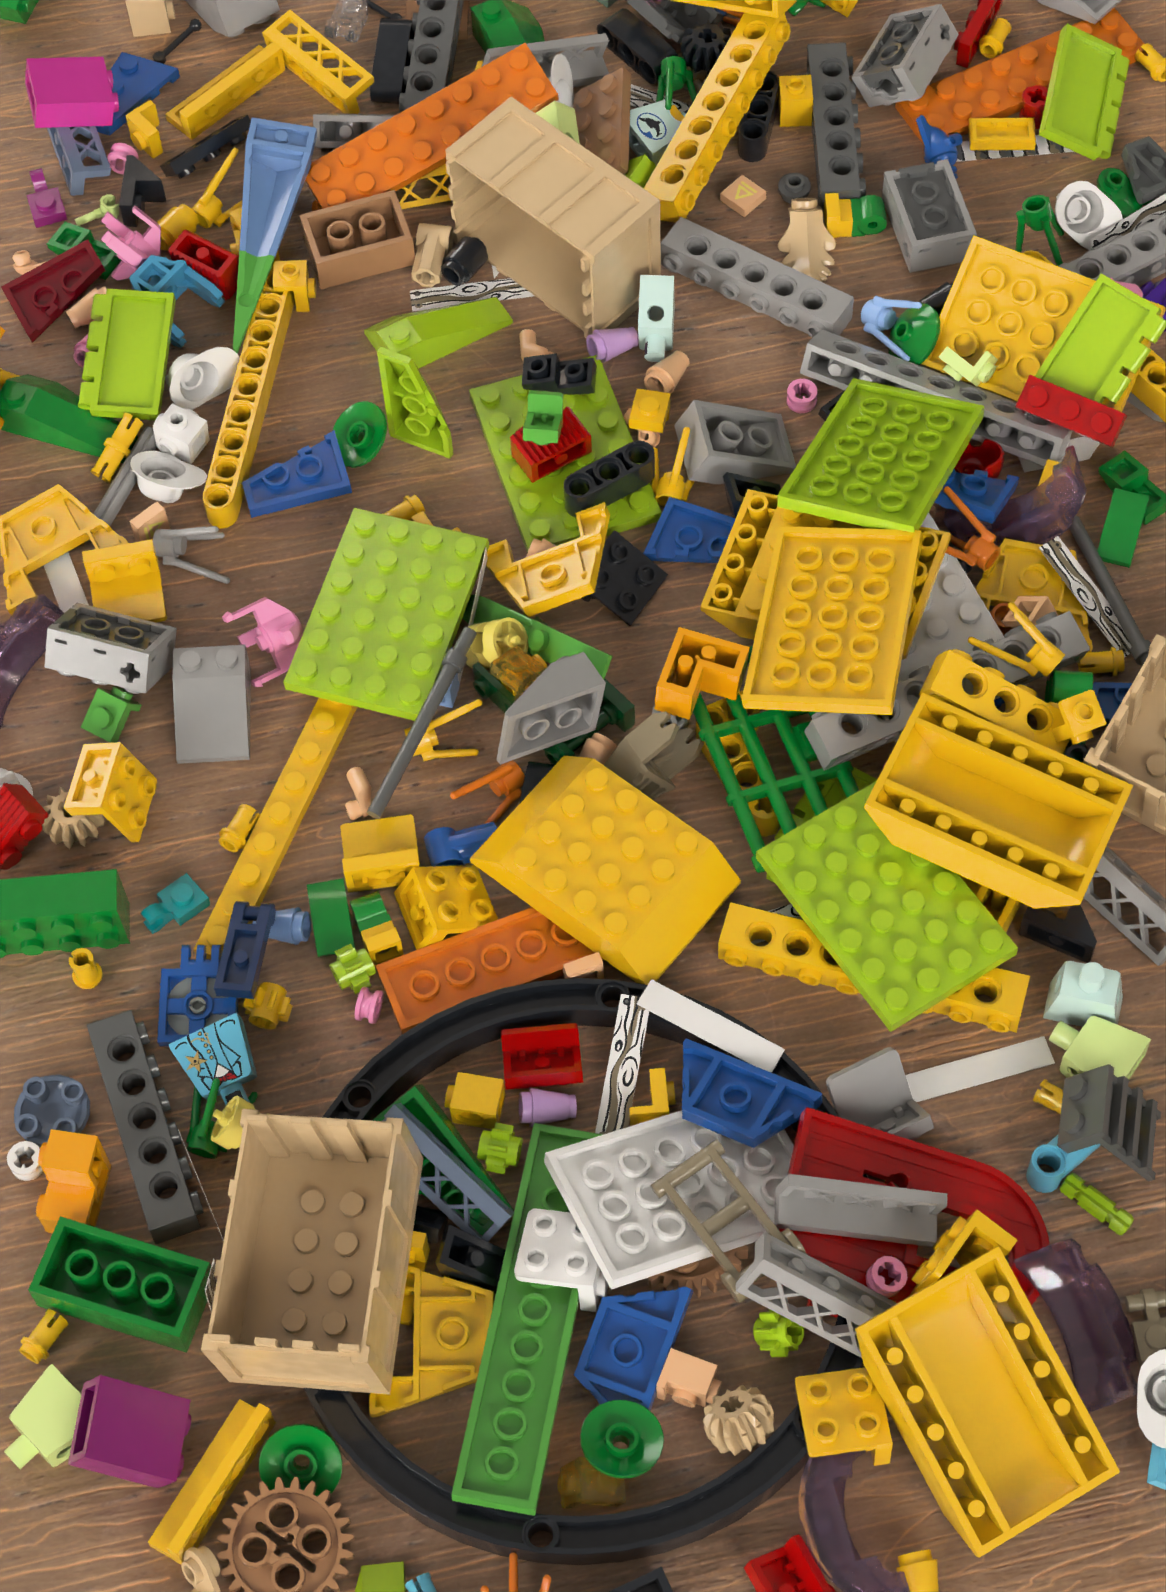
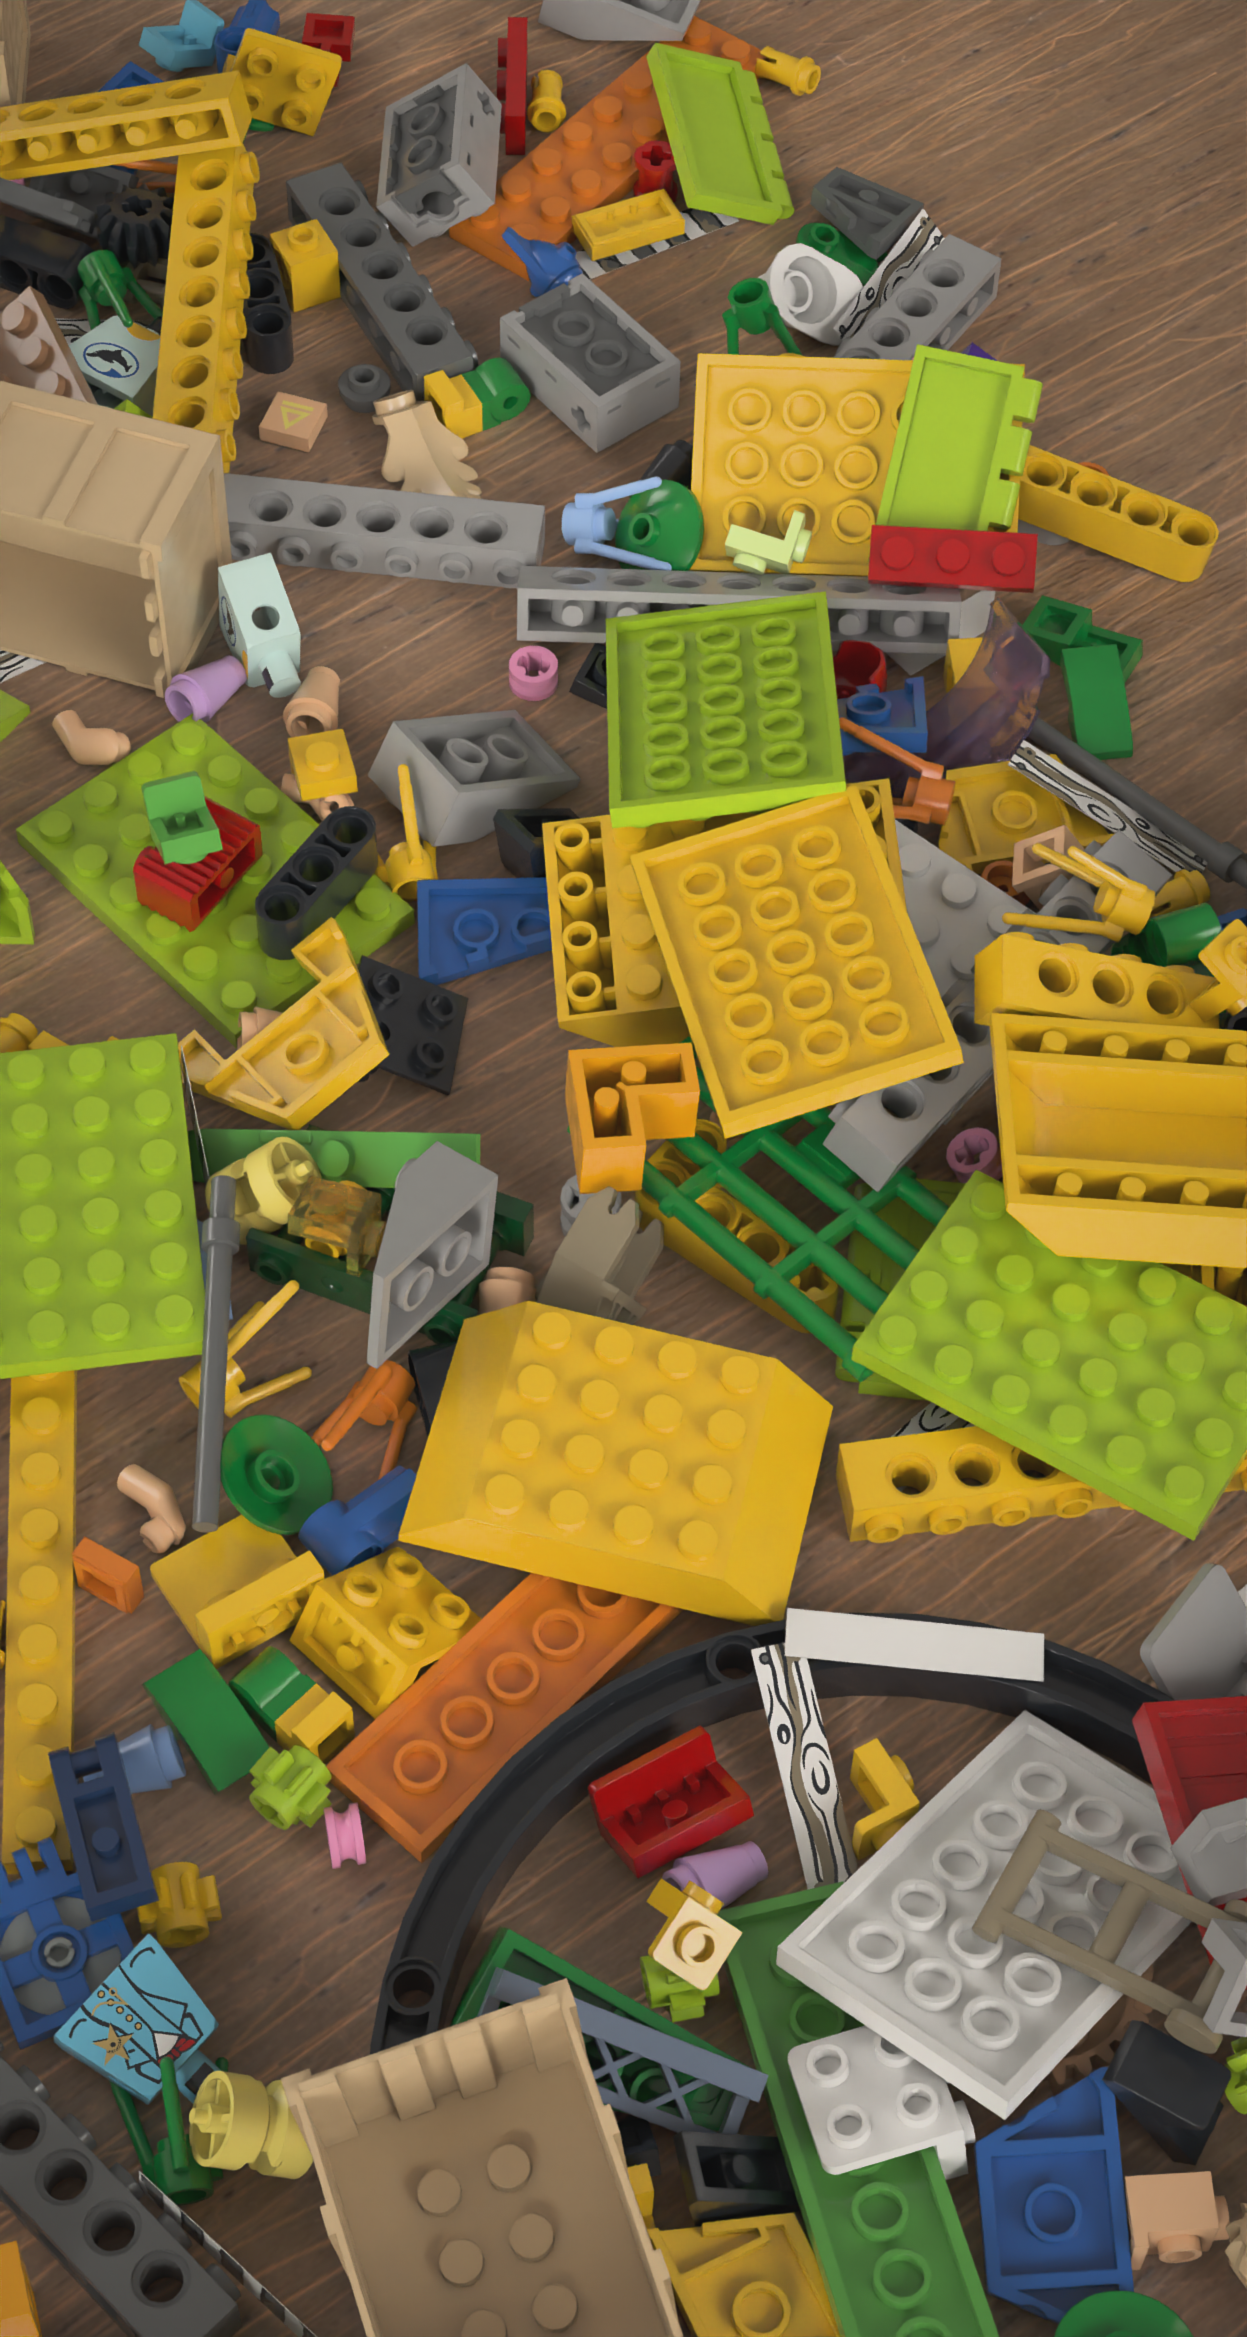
camera: 30 degrees left, 5 degrees down
(316, 821) = (108, 1575): none -> orange tile
(434, 789) = (274, 1473): none -> green dish
(476, 1100) = (600, 1916): yellow brick -> none
(510, 1127) = (693, 1937): none -> bracket
(551, 375) = (132, 759): black slope -> none
(586, 967) = (667, 1634): light nougat tile -> none
(717, 1315) = (1168, 2089): none -> black slope
(738, 1096) = (1017, 1733): blue wing -> none

